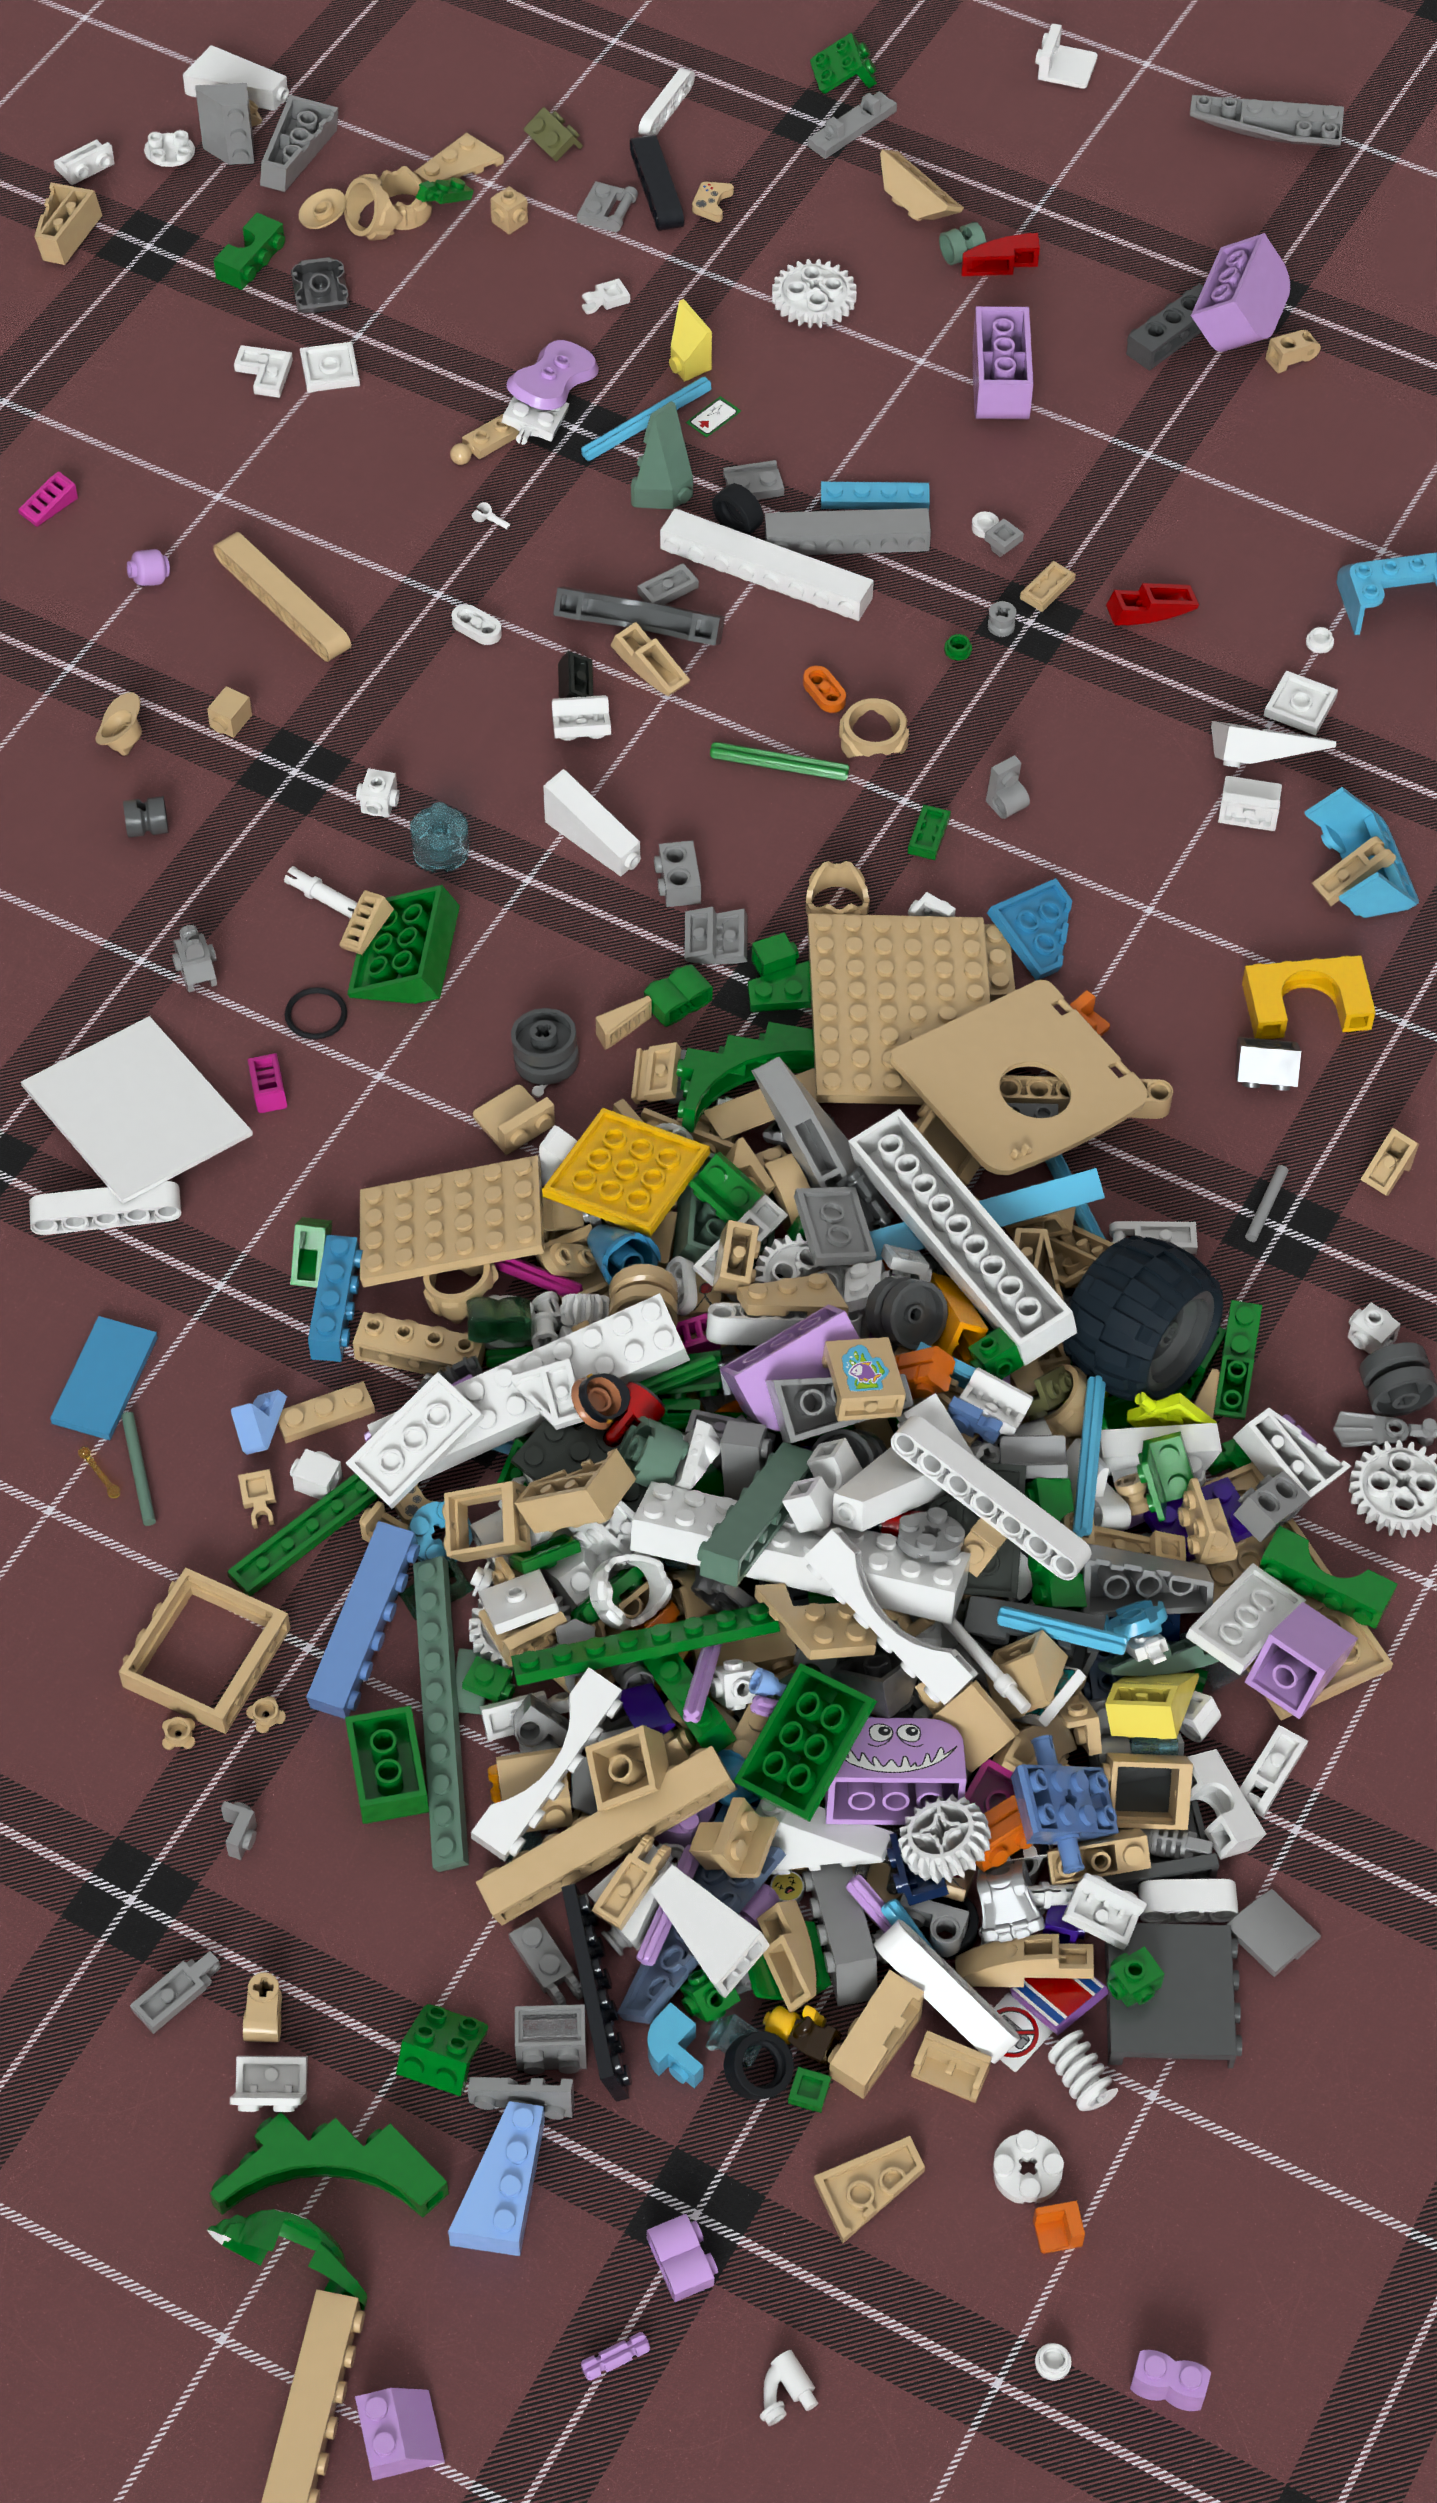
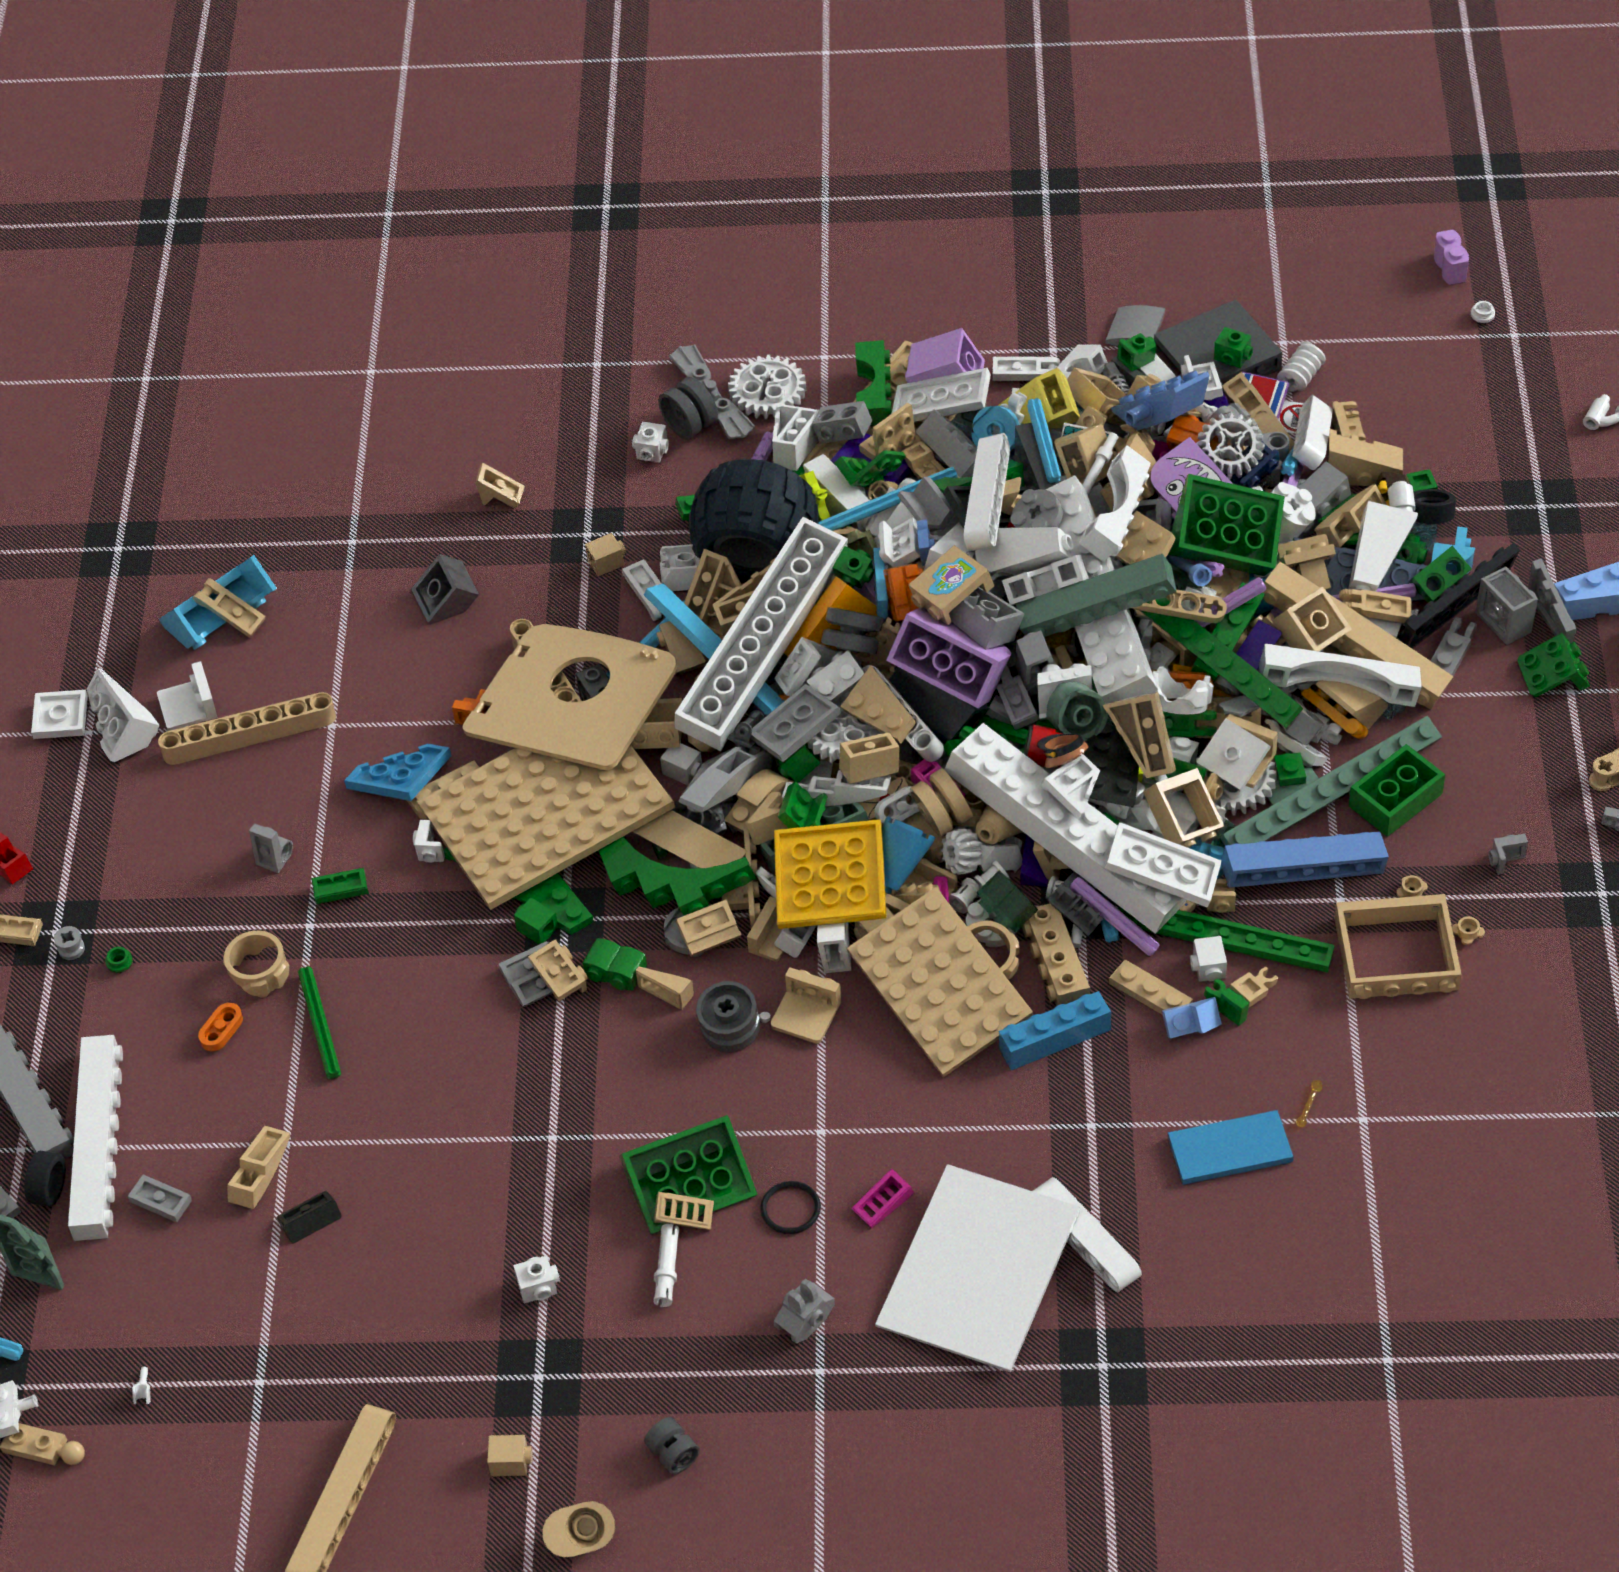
camera: 115 degrees left, 5 degrees down
(138, 1468) = (1287, 1079): sand green bar -> none
(257, 1460) = (1230, 1003): none -> green plate
(308, 1250) = (1022, 1070): slope -> none
(439, 838) = (557, 1207): clear light blue brick -> none
(479, 624) = (287, 1323): white plate -> none
(581, 717) = (359, 1178): white bracket -> none
(588, 824) = (478, 1106): white slope -> none
(637, 1990) = (1437, 571): none -> green brick
(651, 617) = (222, 1240): dark grey arch -> none
(679, 874) = (485, 1020): light grey brick -> none
(681, 2257) = (1576, 490): lavender brick -> none
(696, 943) = (557, 970): none -> tan bracket
(720, 1614) = (1175, 609): none -> tan beam
(772, 2016) = (1401, 496): none -> white brick
(834, 1846) = (1297, 511): none -> white brick
(837, 875) = (460, 889): tan piece -> none
(867, 2184) = (1455, 434): tan wing -> none
(1028, 2187) = (1379, 361): white plate -> none
(1058, 2227) = (1399, 340): orange panel -> none
(1180, 834) = (247, 728): none -> tan beam
(1199, 1862) = (1136, 351): none -> green brick
(1229, 1218) = (605, 554): none -> tan brick
(1266, 1203) = (561, 547): light grey bar -> none
(1339, 978) = (371, 617): yellow arch -> none

